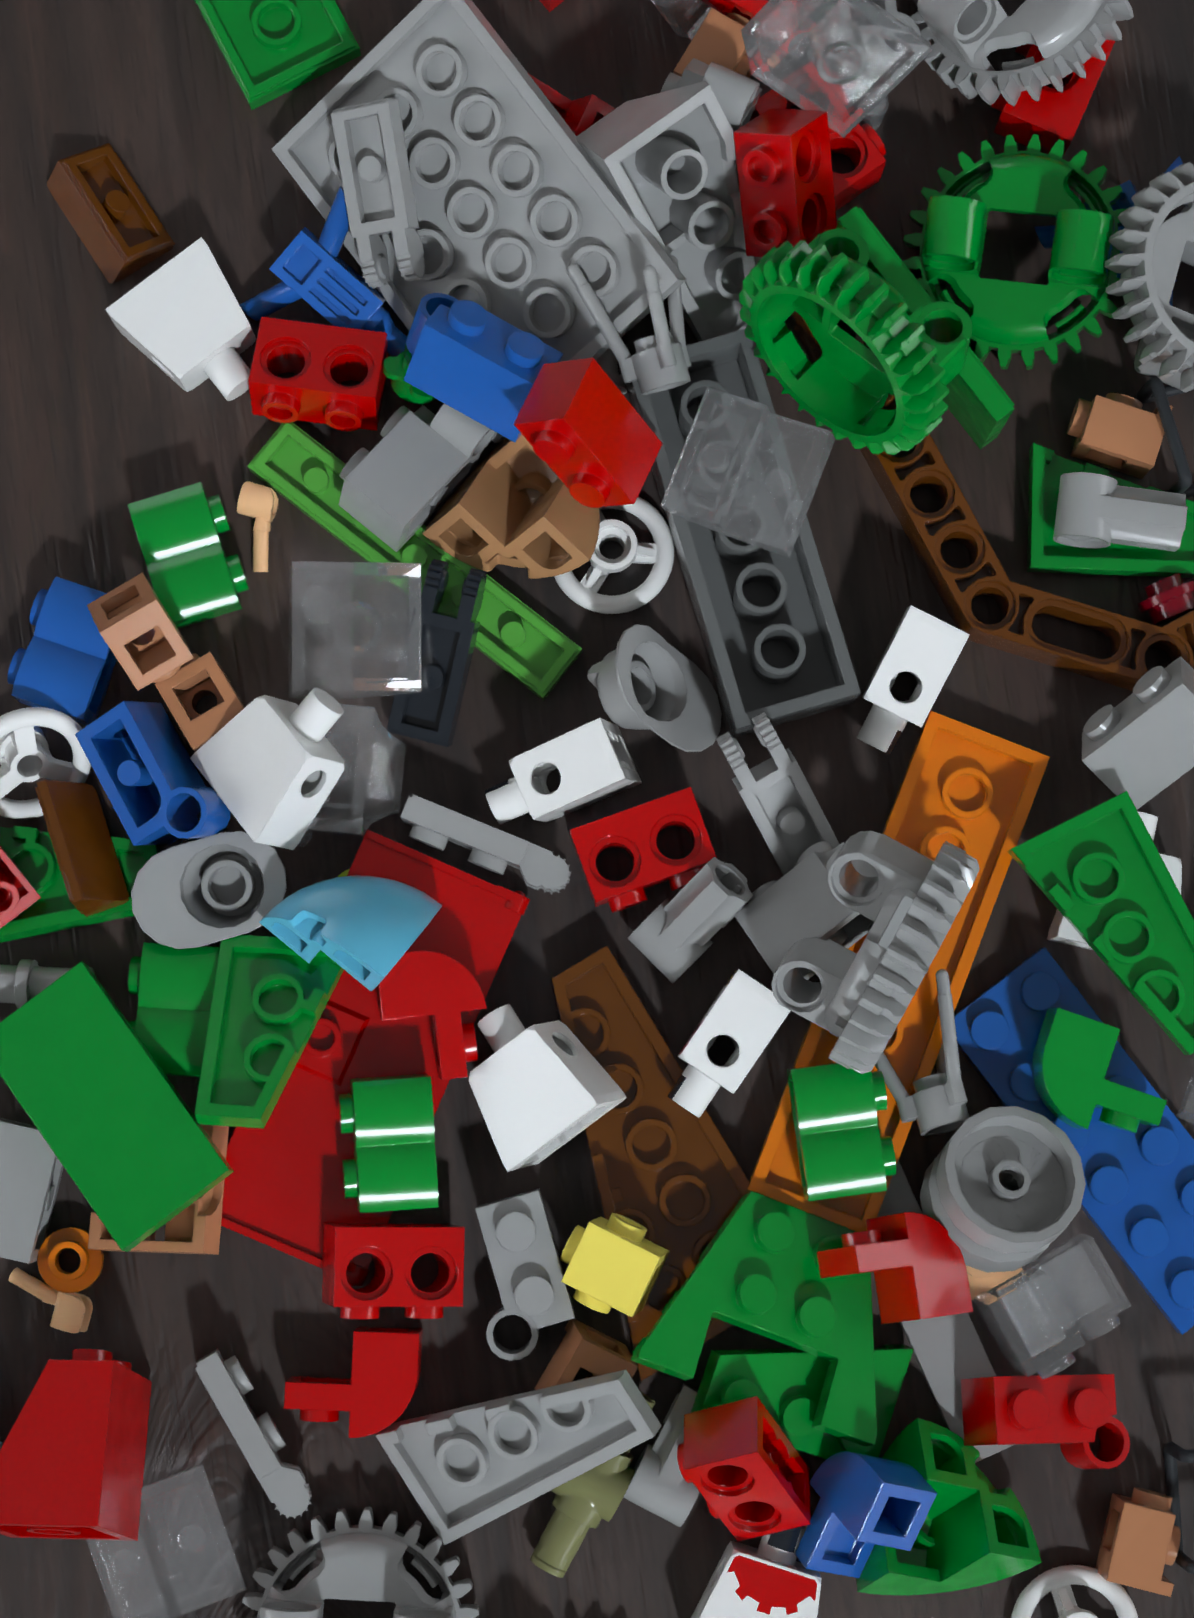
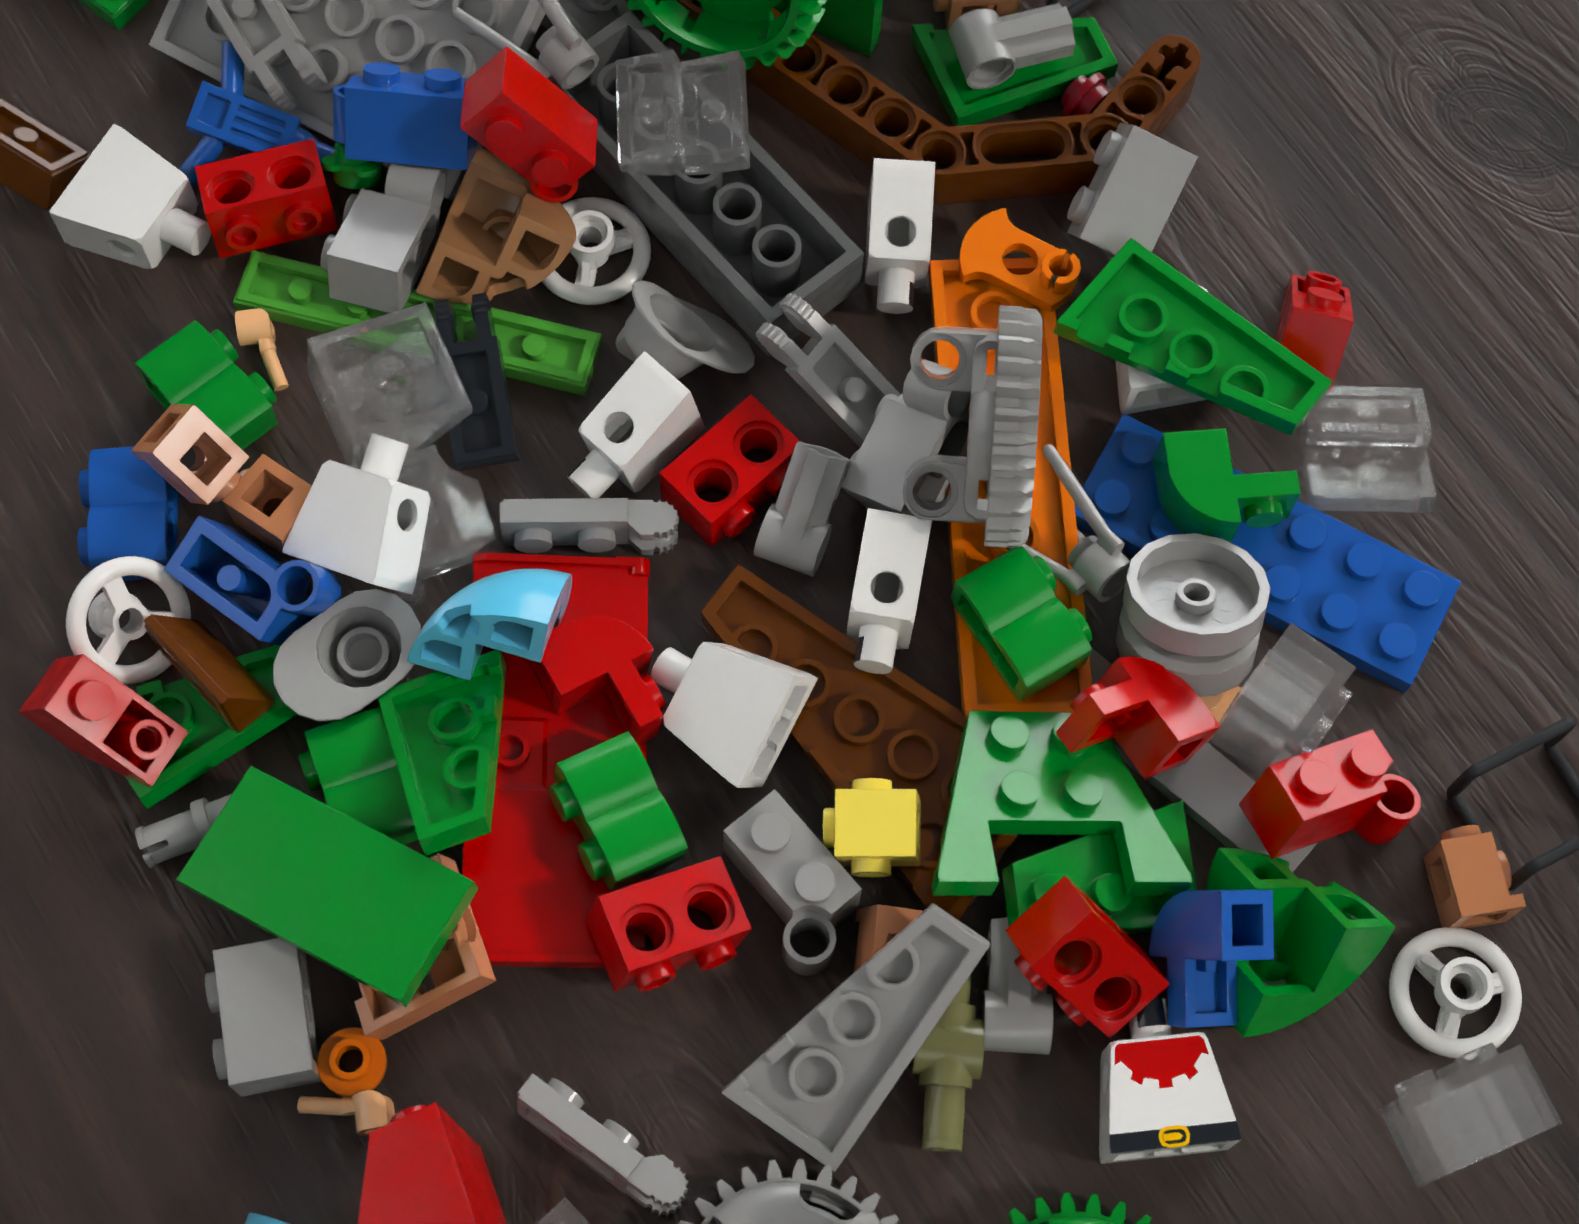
camera: 25 degrees left, 15 degrees down
(380, 1385) = (705, 1050): red brick -> none
(1003, 716) = (994, 238): none -> orange piece

